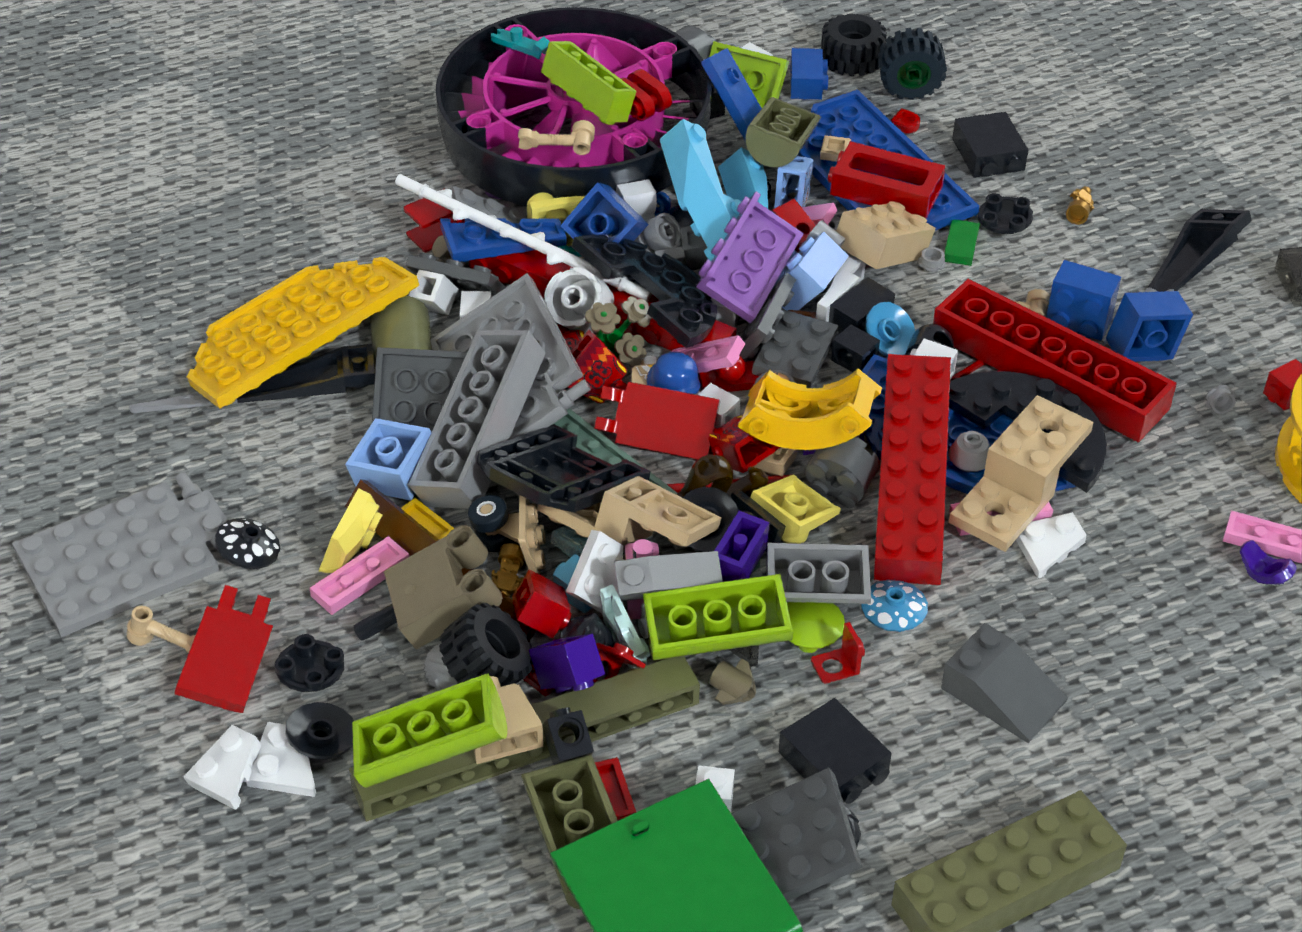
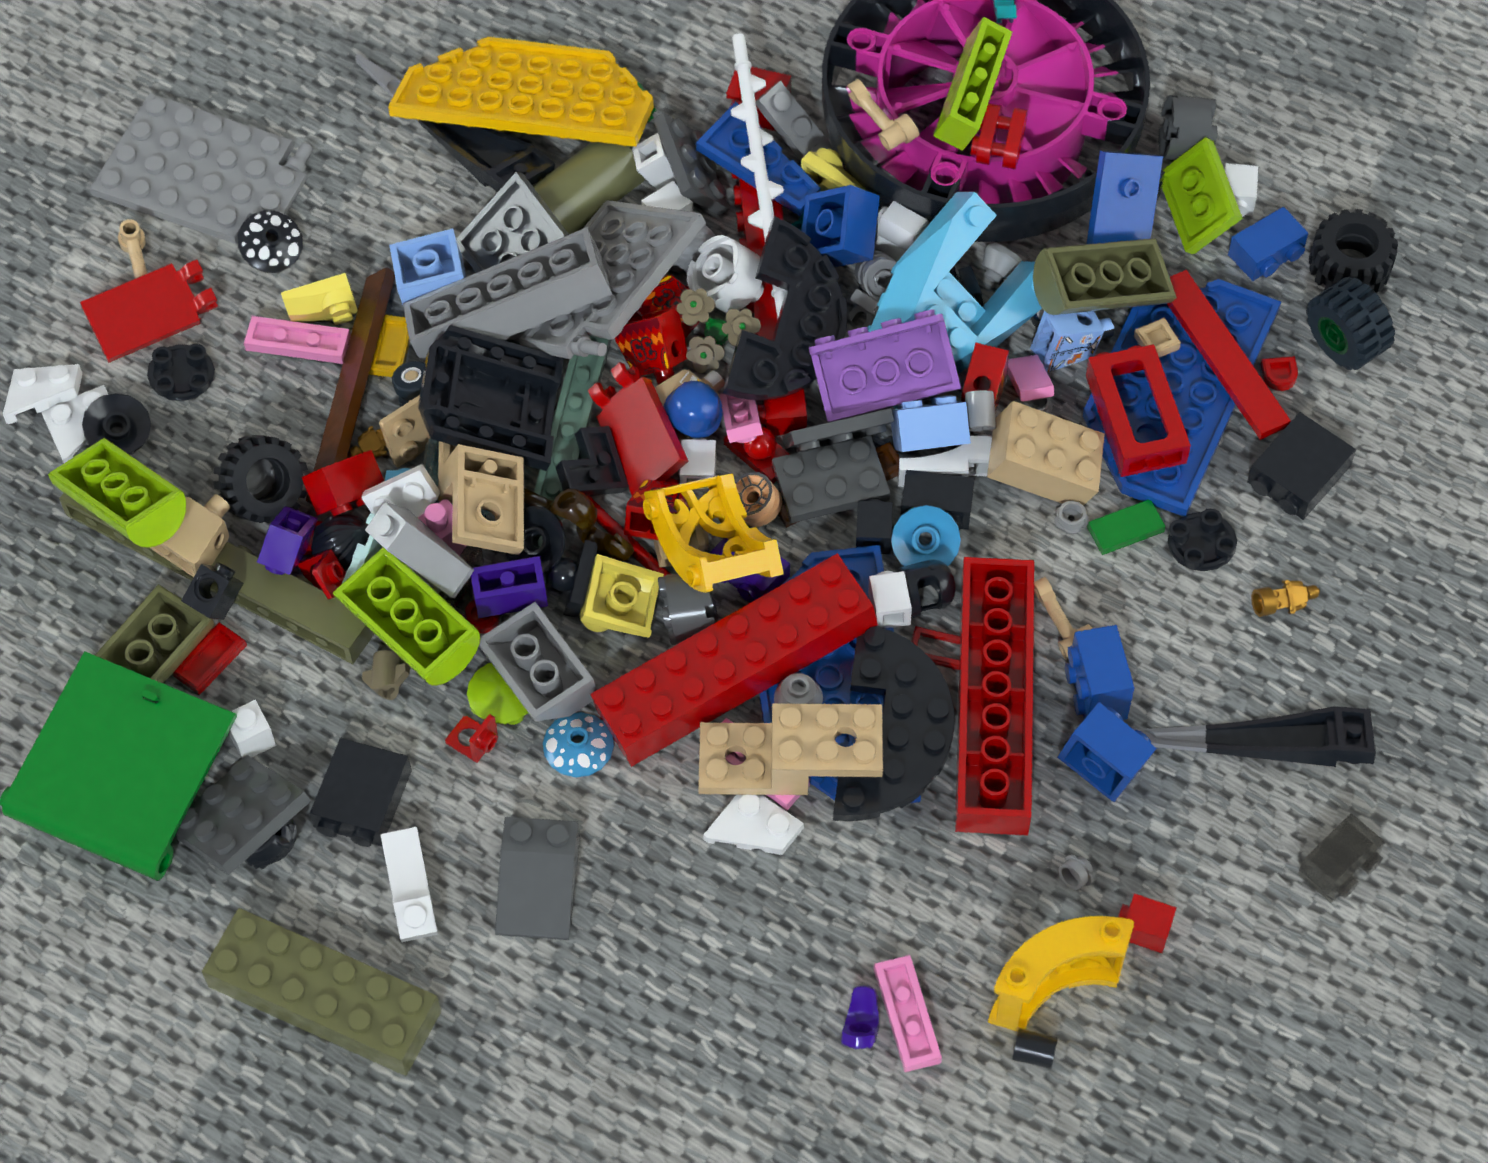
camera: 55 degrees right, 15 degrees up
(431, 589) = (298, 398): dark tan piece -> none
(669, 465) = (600, 466): none -> black plate
(886, 129) = (1226, 358): none -> red tile
(952, 767) = (409, 884): none -> white slope

